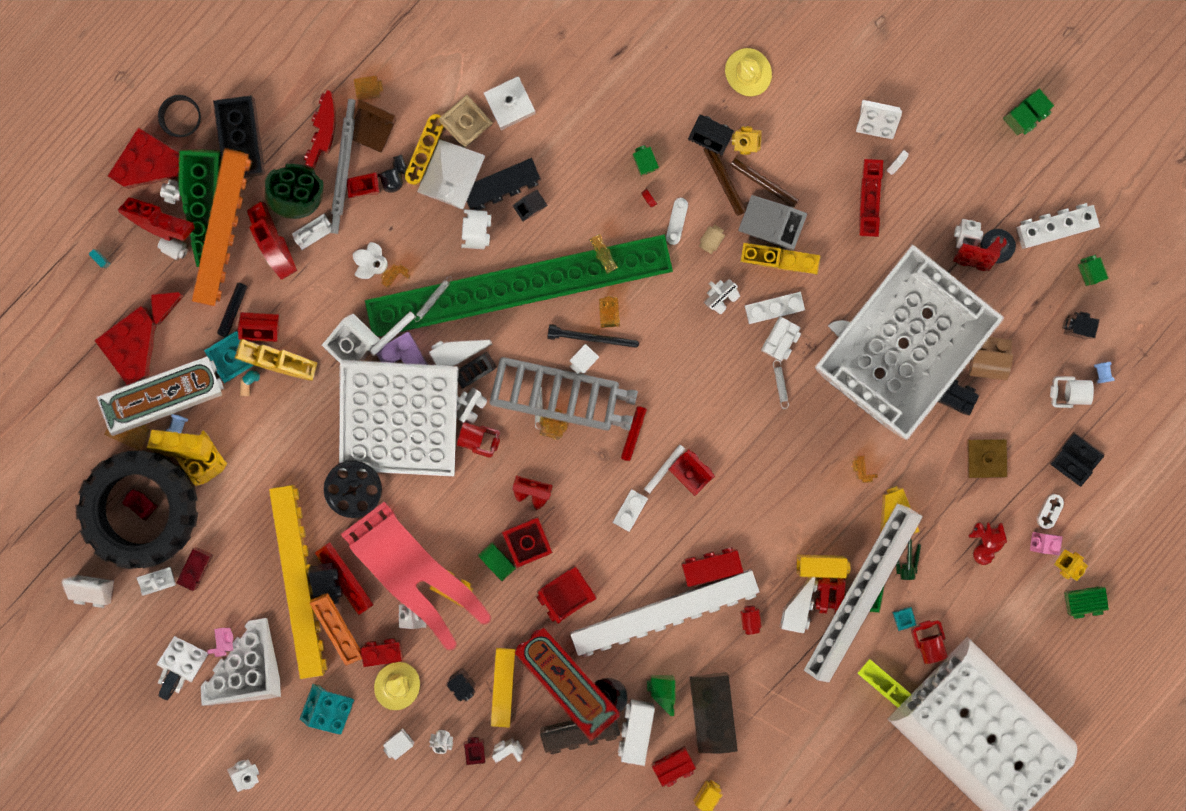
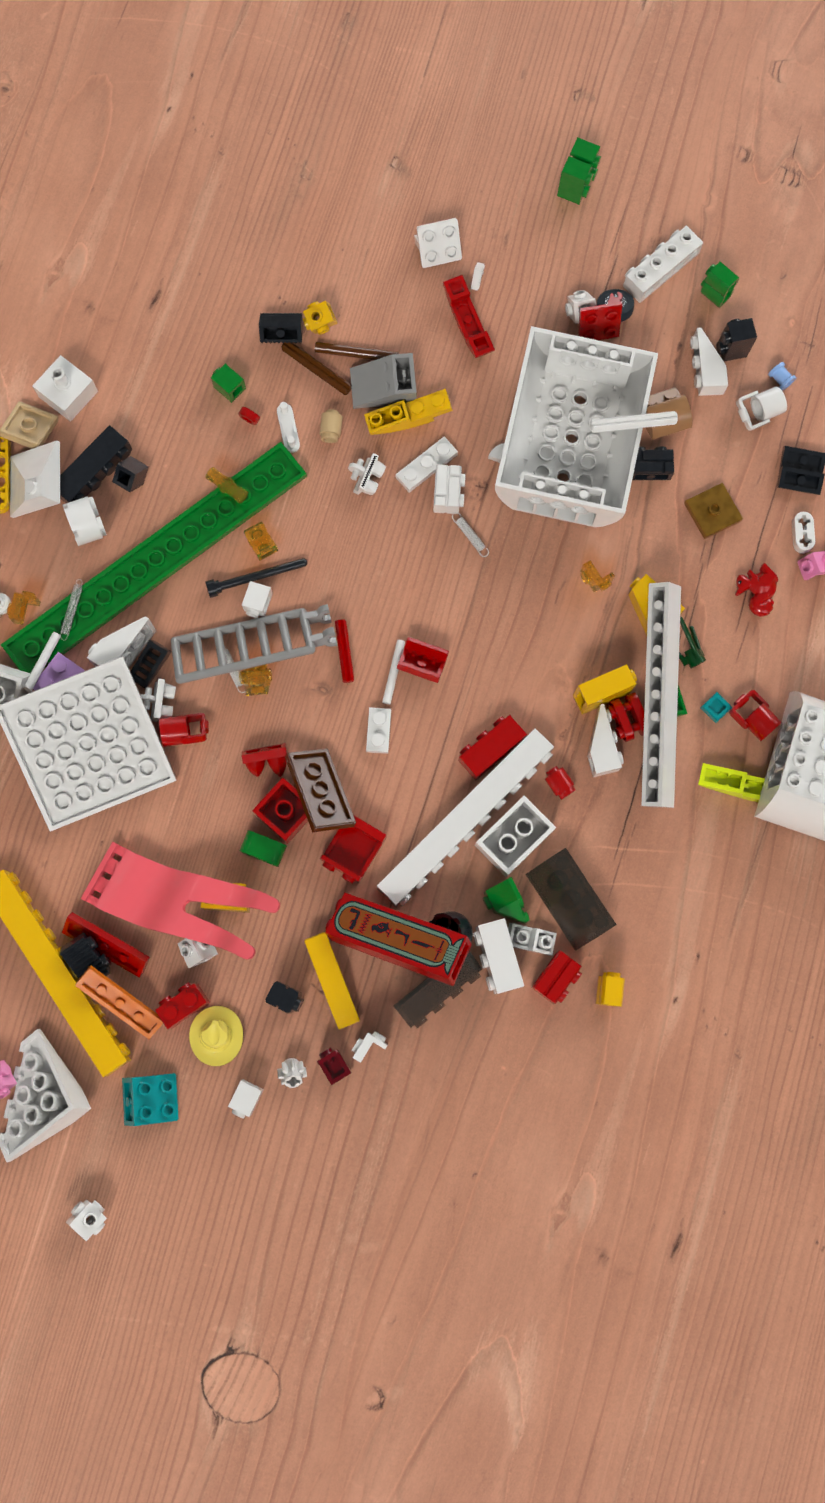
camera: 25 degrees left, 10 degrees down
(350, 497) = (62, 846): black wedge -> none
(561, 540) = (320, 790): none -> tile
(669, 728) = (532, 939): none -> white slope
(694, 646) = (514, 836): none -> white brick
(748, 72) = (291, 260): light yellow hat -> none
(952, 368) = (634, 421): none -> white axle
(1047, 338) = (710, 368): none -> white slope

